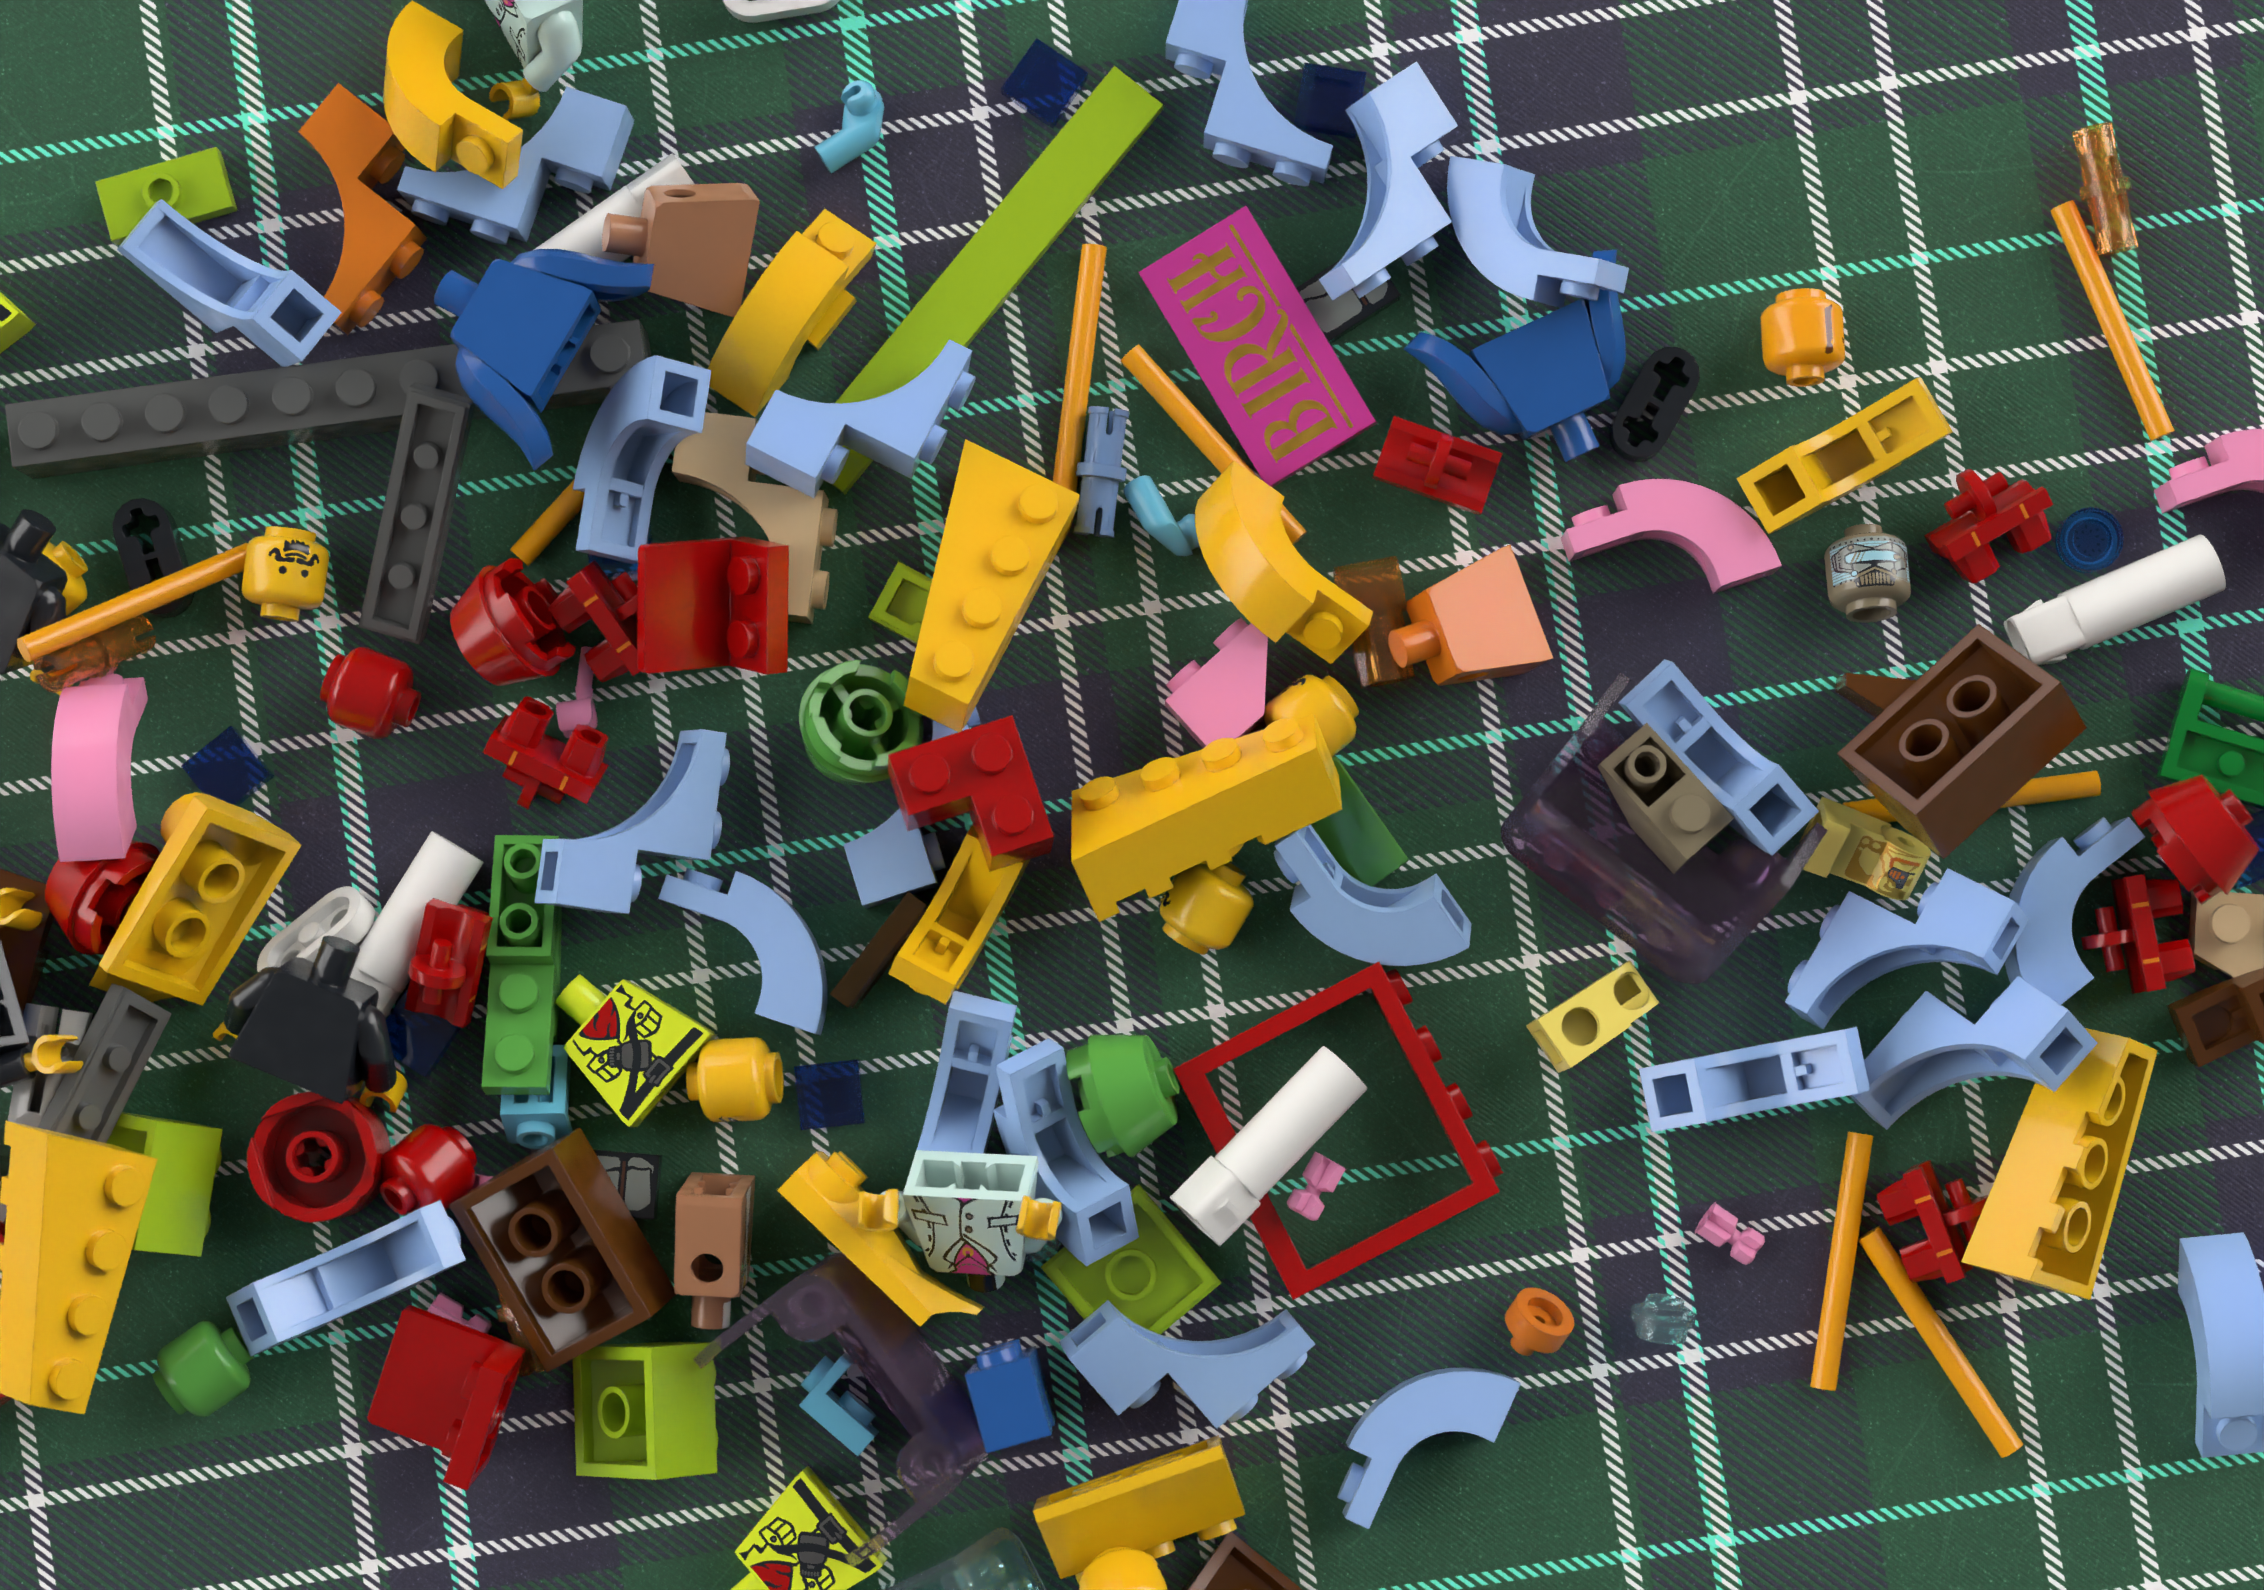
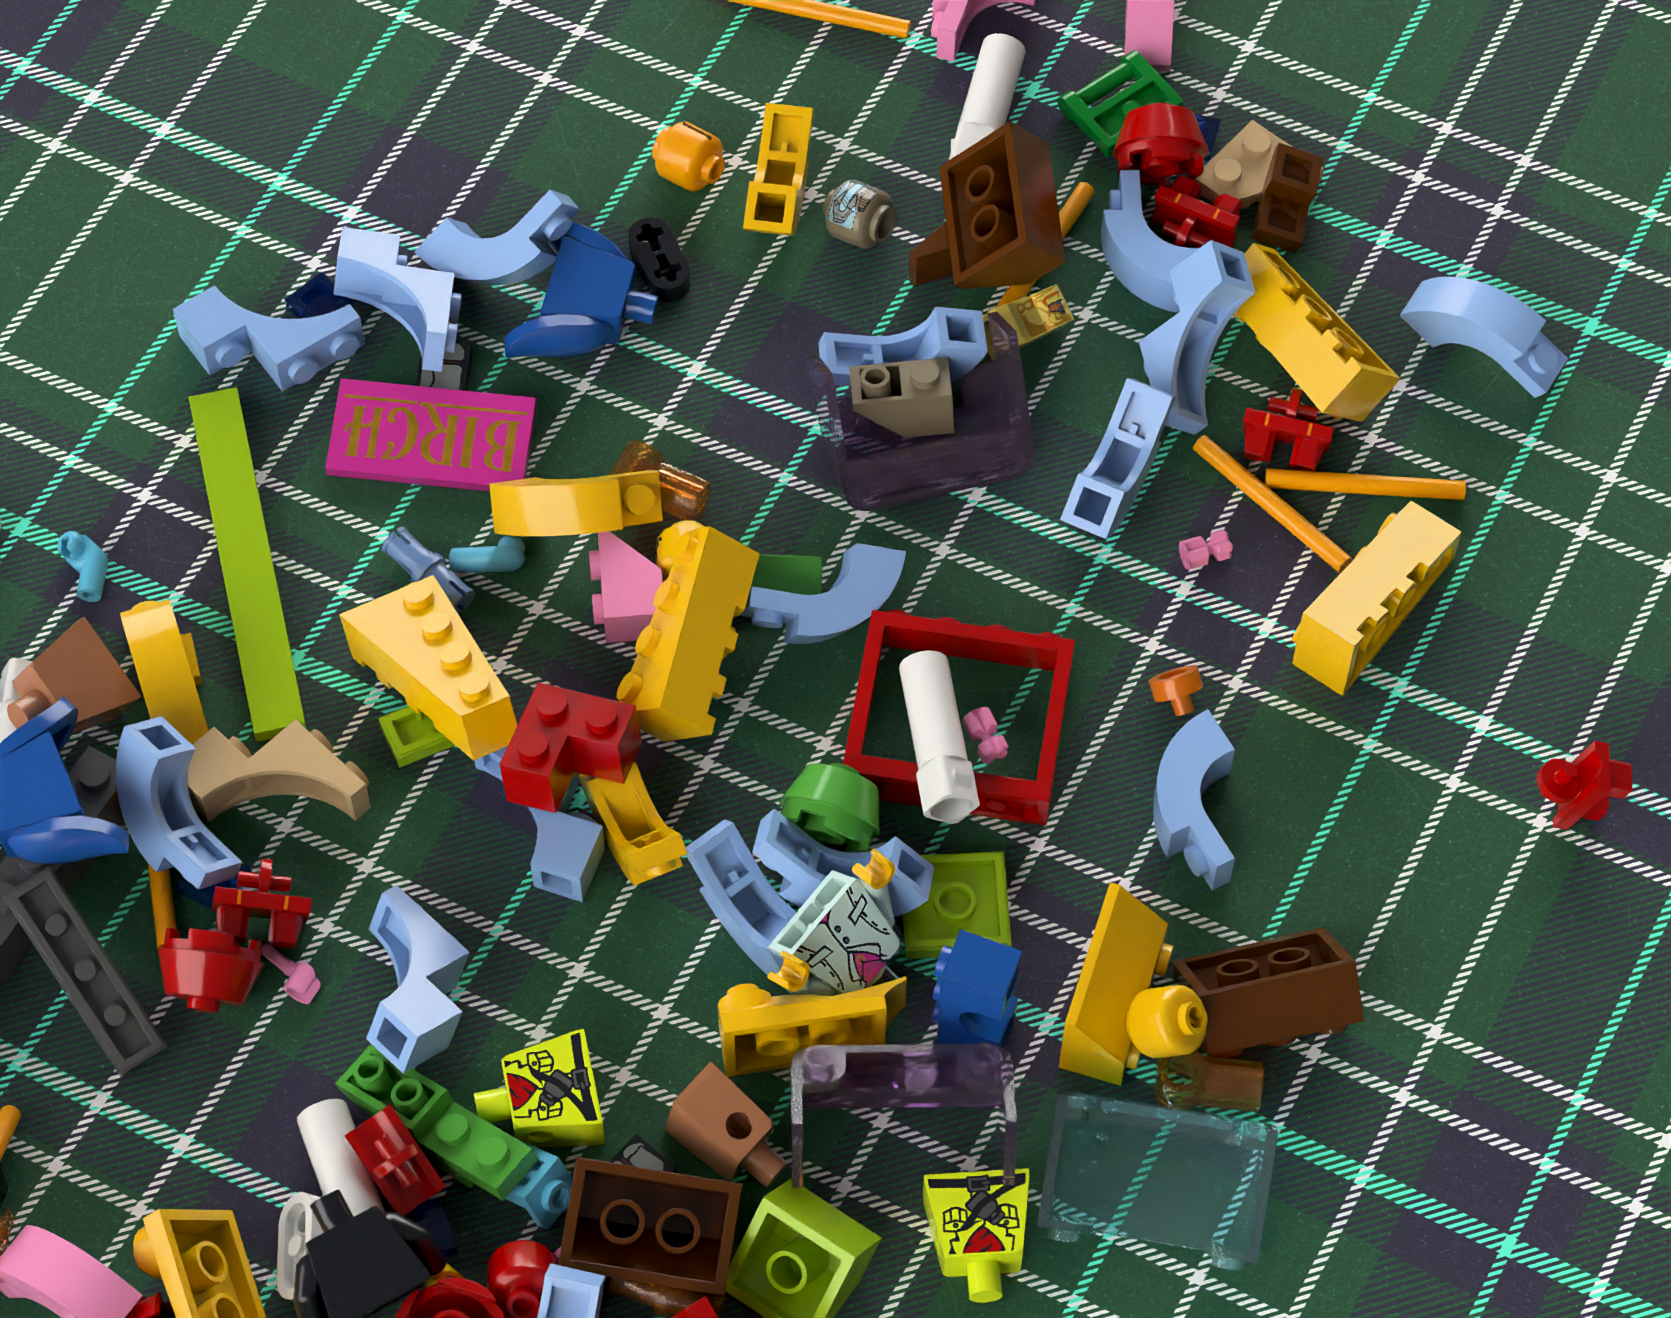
camera: 60 degrees left, 25 degrees down
(228, 768) = (124, 1224): clear blue tile -> none
(285, 572) = (44, 1089): yellow head -> none
(370, 692) = (172, 1092): red head -> none
(544, 763) = (287, 1014): red hips -> none
(713, 605) = (312, 829): red bracket -> none
(736, 1079) = (626, 1043): yellow head -> none
(788, 953) = (553, 956): light blue arch -> none
(804, 439) = (259, 692): light blue arch -> none
(830, 1094) = (685, 1004): clear blue tile -> none
(843, 1417) = (902, 1140): medium azure bracket -> none
(855, 720) = (461, 804): bright green cone -> none
(879, 952) = (618, 900): dark brown tile -> none
(1044, 83) = (161, 444): clear blue tile -> none
(1079, 365) = (343, 535): light orange bar -> none
(1193, 422) = (429, 506): light orange bar -> none
(1206, 907) = (753, 692): yellow head -> none
(1217, 1375) = (1058, 897): light blue arch -> none
(1437, 465) = (592, 384): red hips -> none
(1474, 624) = (709, 426): torso -> none
(1592, 1016) = (1006, 533): light yellow leg -> none
(1662, 1319) = (1230, 616): clear light blue plate -> none
(1685, 514) = (744, 280): bright pink arch -> none
(1800, 1452) = (1373, 596): none -> yellow wedge
(1864, 941) = (1112, 292): light blue arch -> none
(1984, 513) = (878, 134): red hips -> none
(2089, 540) = (937, 102): clear blue tile -> none

